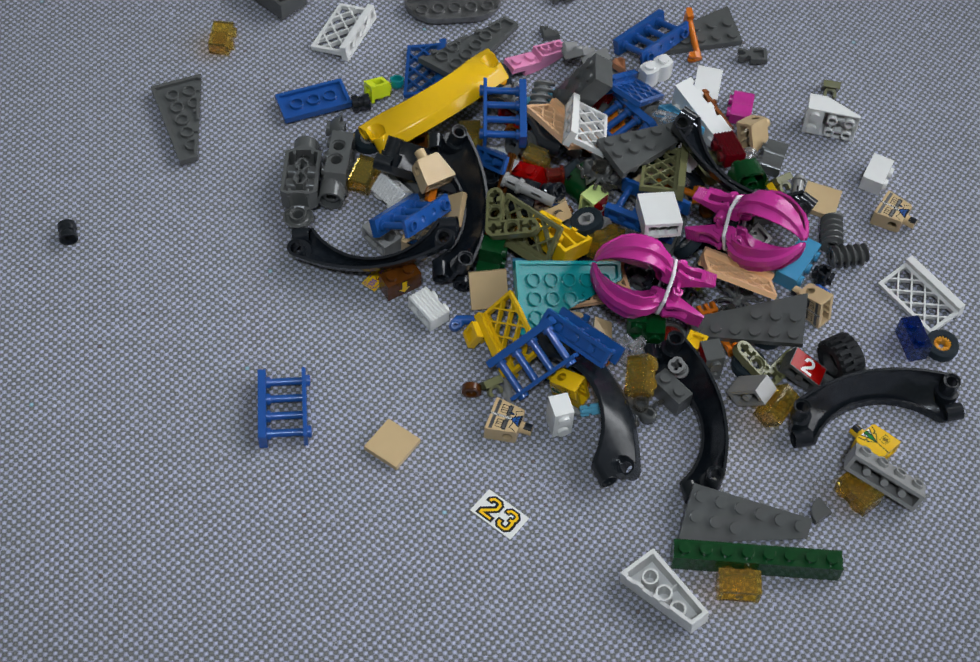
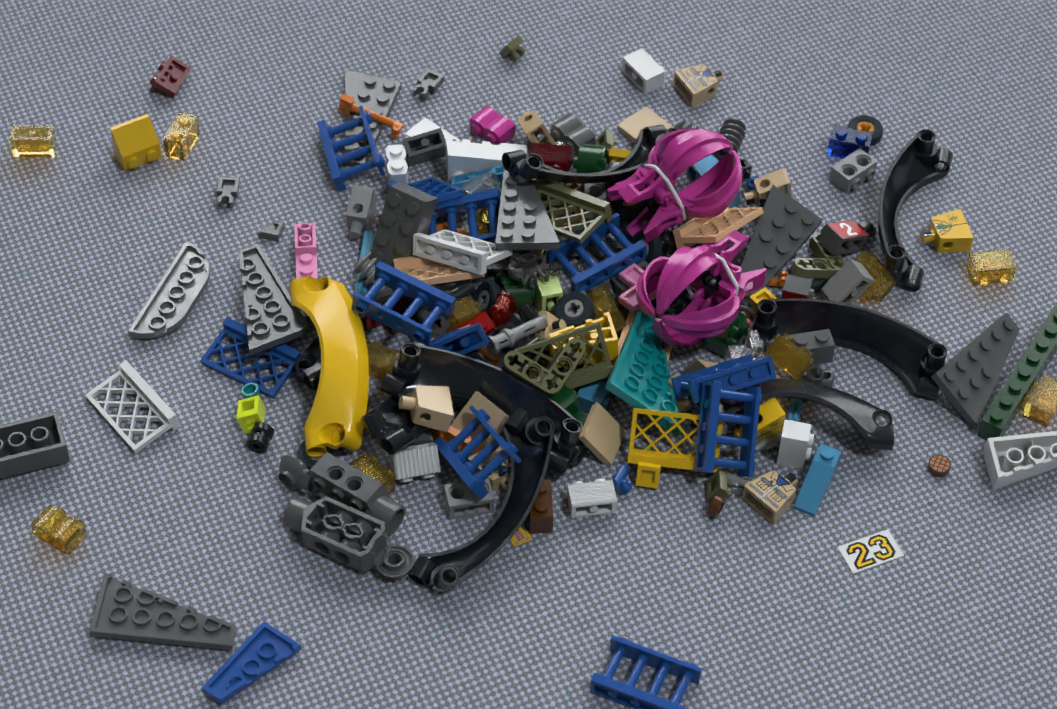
camera: 60 degrees left, 5 degrees down
(175, 178) = (251, 661): none -> blue wing
(313, 100) = (224, 481): blue plate -> none
(392, 444) = (742, 604): tan tile -> none
(542, 448) = (818, 479): none -> dark azure slope
(572, 51) = (332, 215): light grey bracket -> none
(616, 531) = (939, 465): none -> reddish brown tile
(659, 214) = (623, 242): white brick -> none
(680, 71) = (424, 147): none -> dark grey brick
(682, 371) = (799, 319): light grey bush -> none
(798, 182) = (620, 135): light grey pin -> none
(819, 511) = (993, 305): dark grey tile -> none
(829, 118) = (557, 67): white slope -> none
(840, 355) = (851, 200): black tyre -> none
(885, 477) = (993, 237): light grey brick -> none
(886, 351) = (853, 171): none -> light grey brick
(932, 285) = (800, 102): white fence -> none

